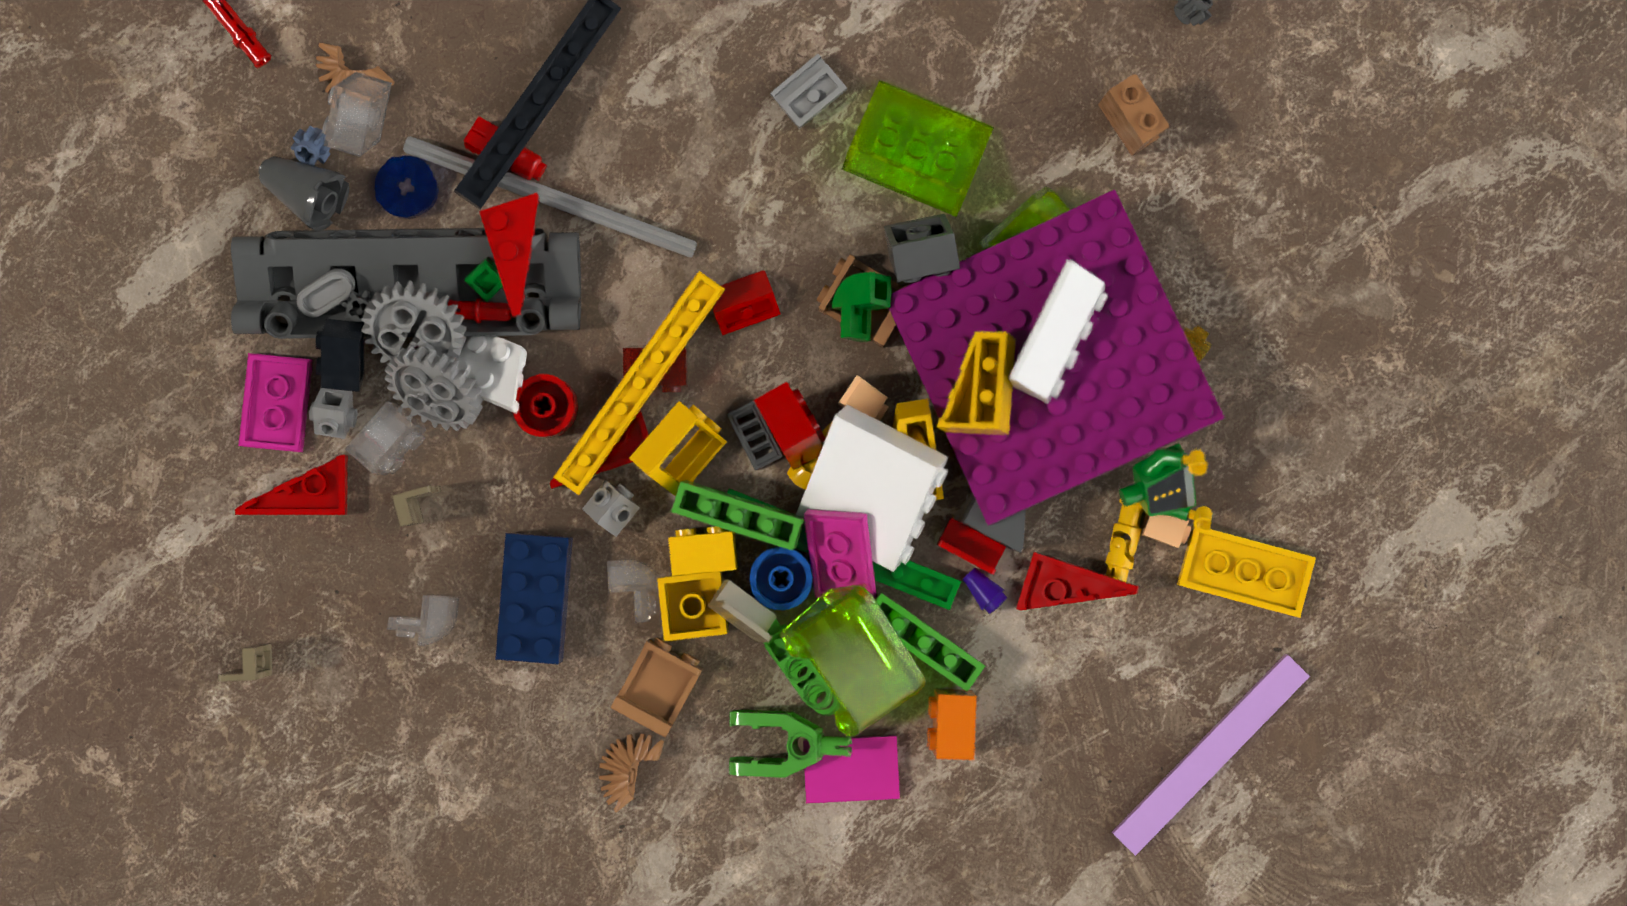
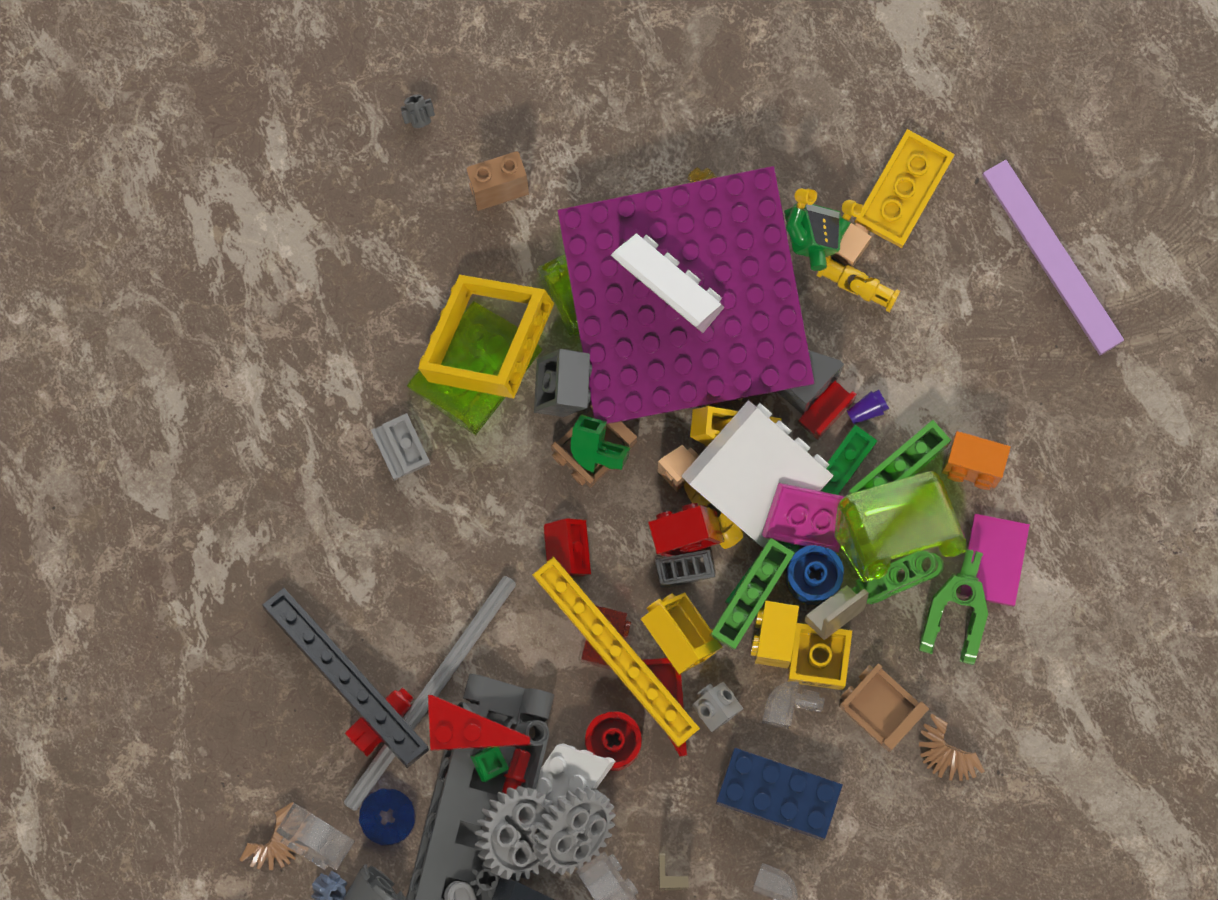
camera: 75 degrees left, 10 degrees down
(944, 190) = (521, 348): none -> yellow window
(983, 389) = (698, 355): yellow wedge -> none
(1060, 582) = (877, 341): red wing -> none

